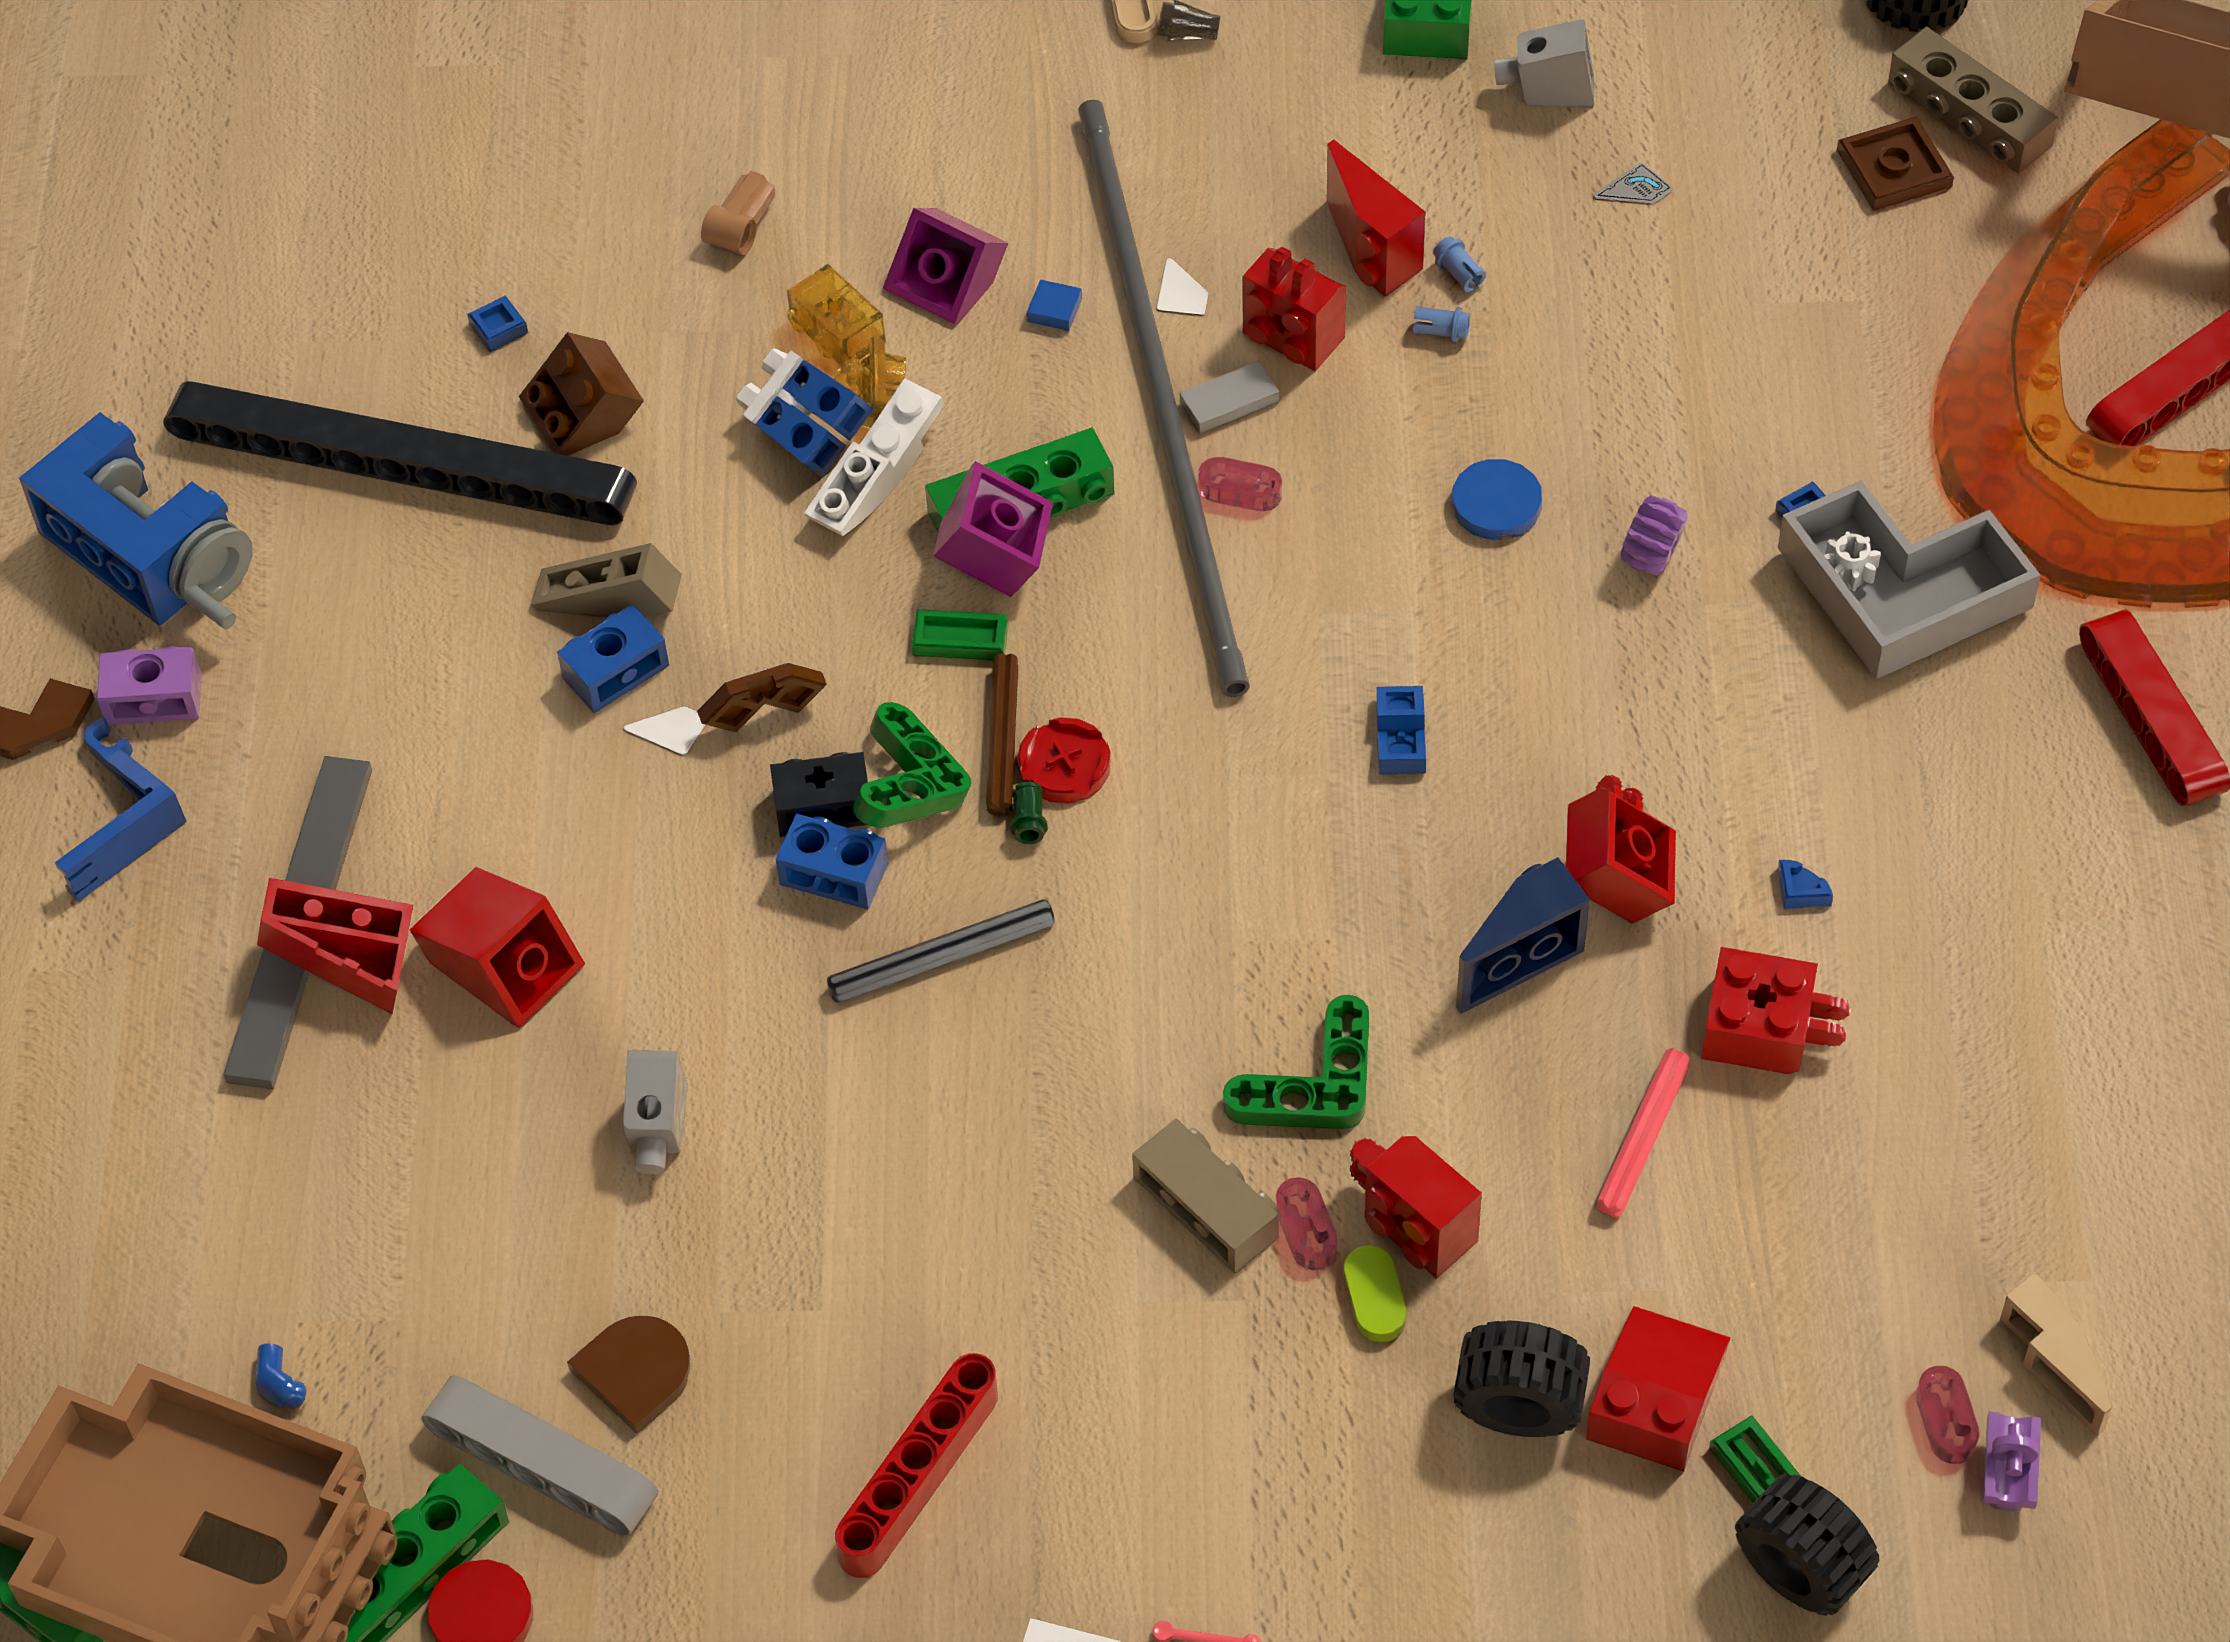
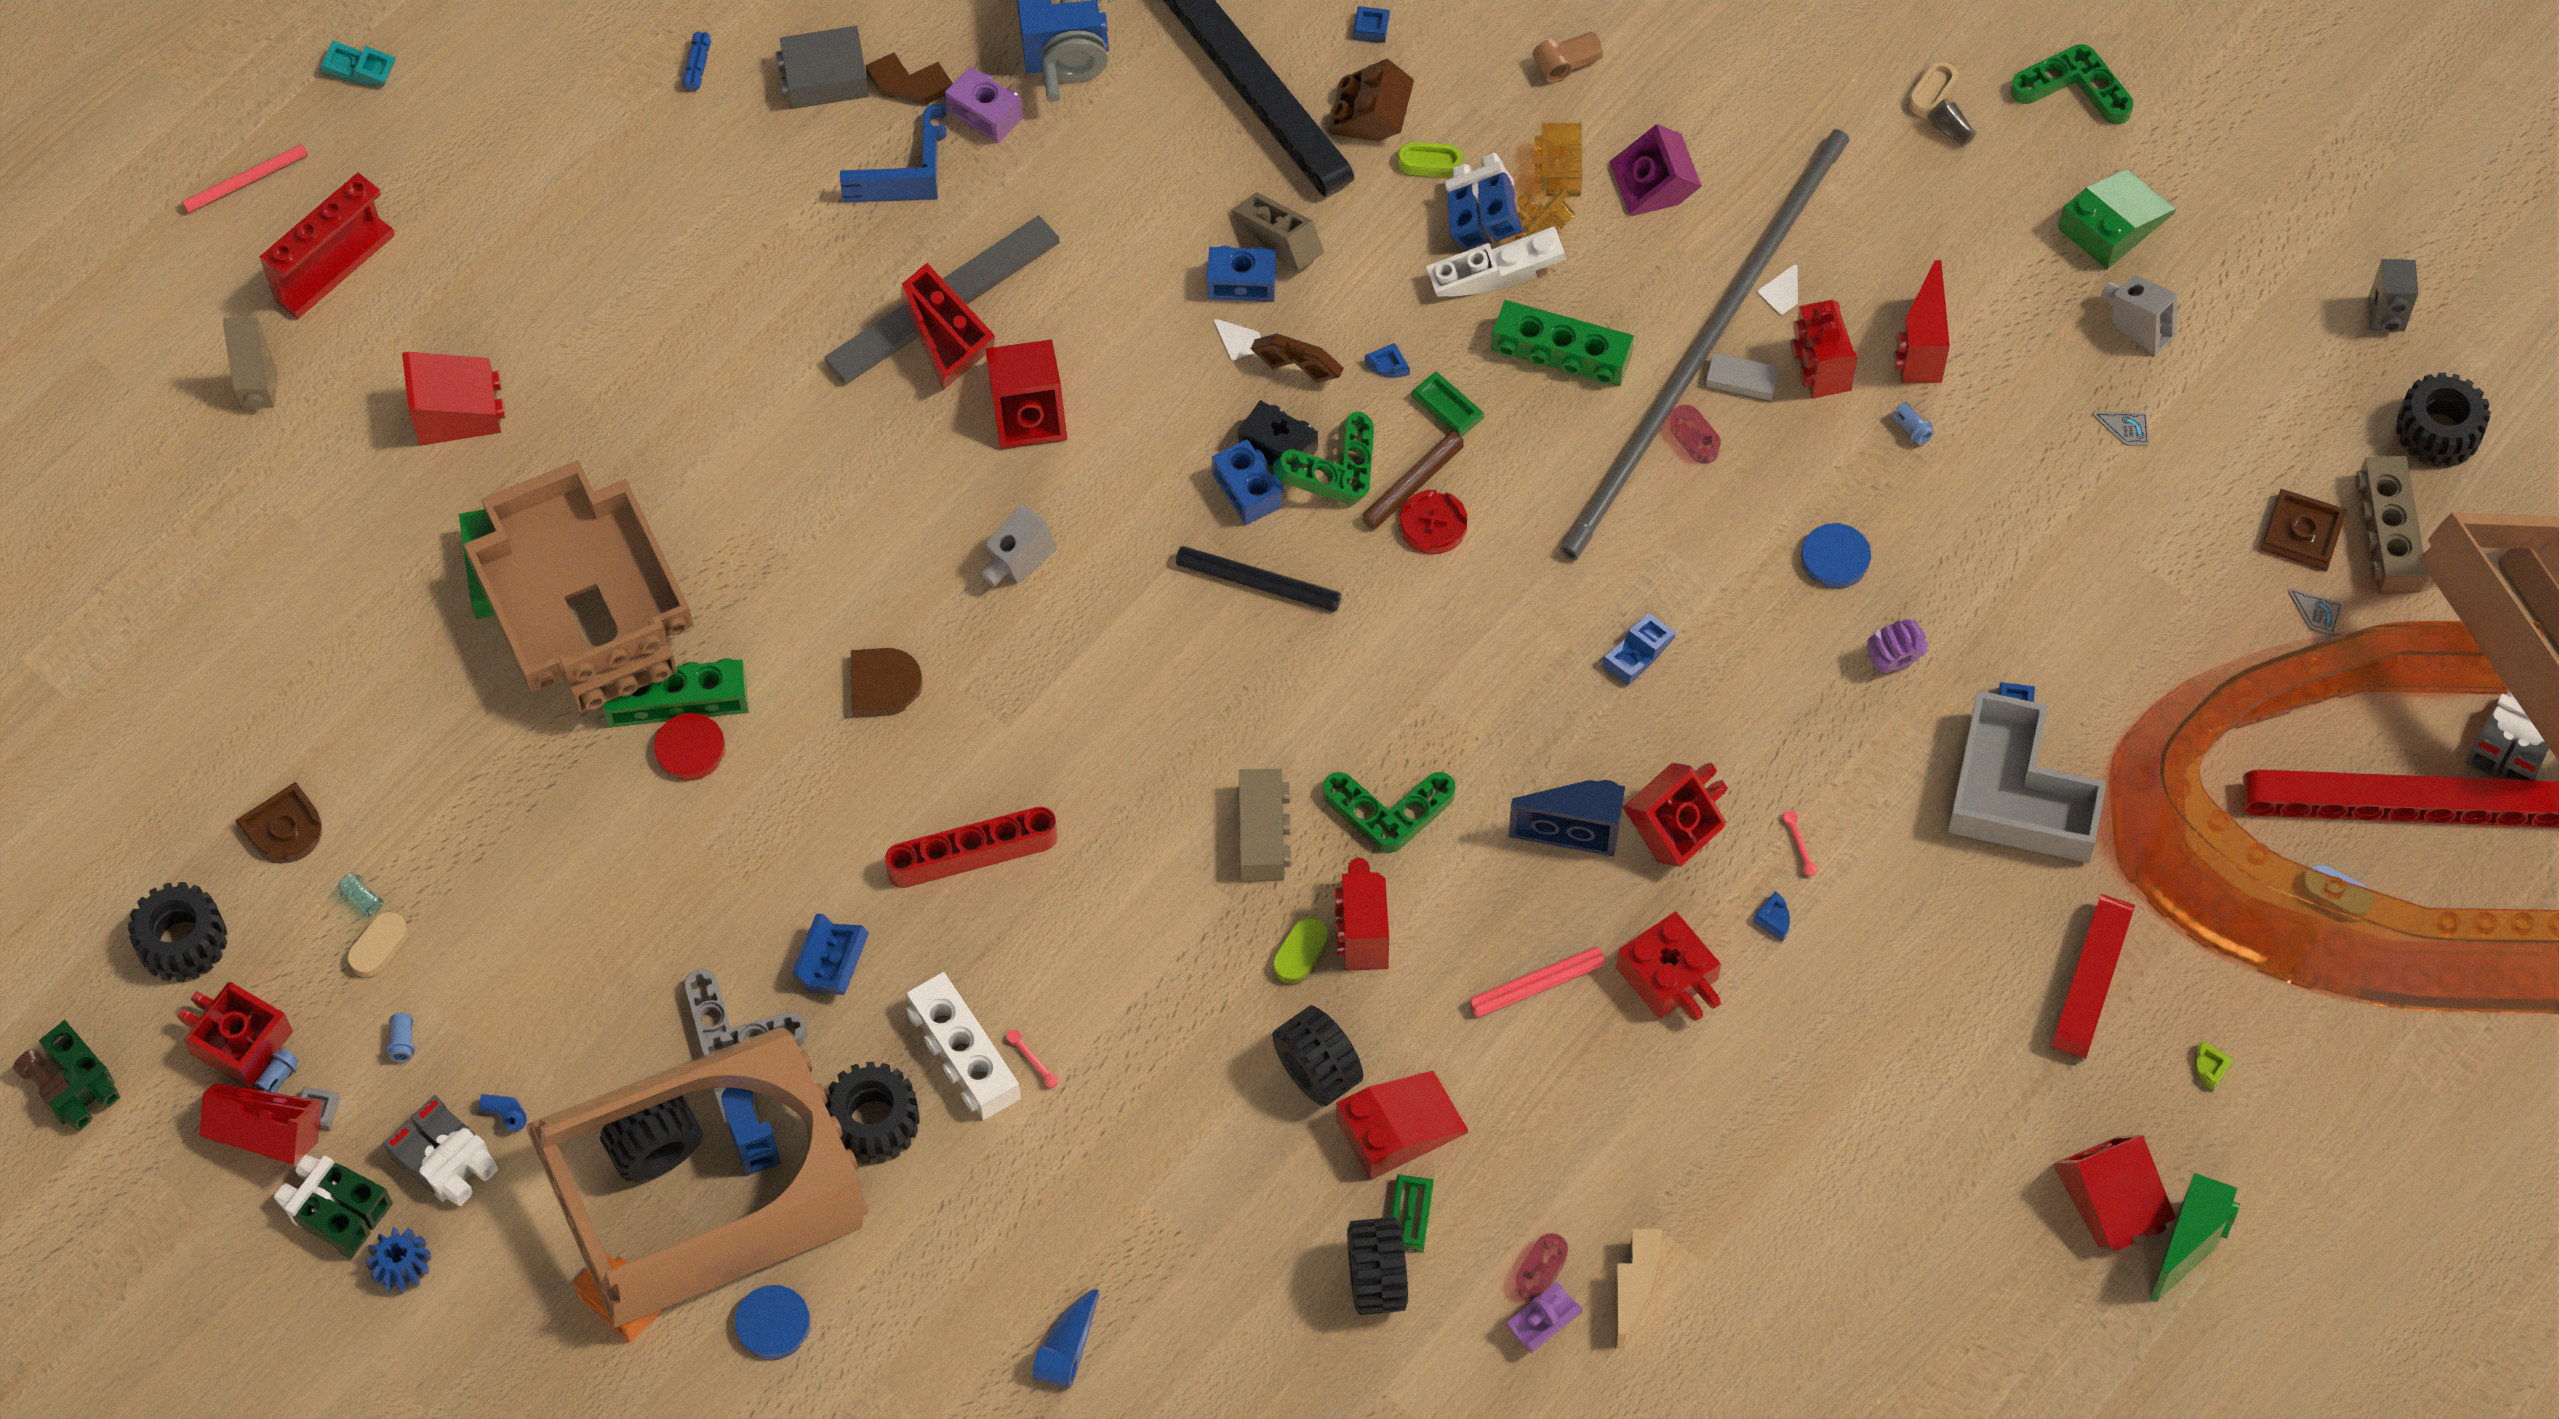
camera: 40 degrees right, 5 degrees up
(275, 1384) = (699, 543): blue arm -> none
(540, 1455) = (790, 689): light grey beam -> none
(695, 411) = (1429, 159): none -> lime tile
(855, 637) = (1388, 362): none -> blue tile
(994, 530) = (1516, 355): magenta slope -> none
(1029, 822) = (1374, 543): dark green pin -> none
(1054, 305) = (1697, 244): blue tile -> none
(1316, 1219) = (1296, 880): clear pink beam -> none
(1453, 257) = (1962, 387): medium blue pin -> none
(1716, 781) = (1790, 819): none -> coral hinge
(1853, 559) = (1997, 750): white gear -> none
(1984, 227) = (2318, 611): none -> light grey sticker

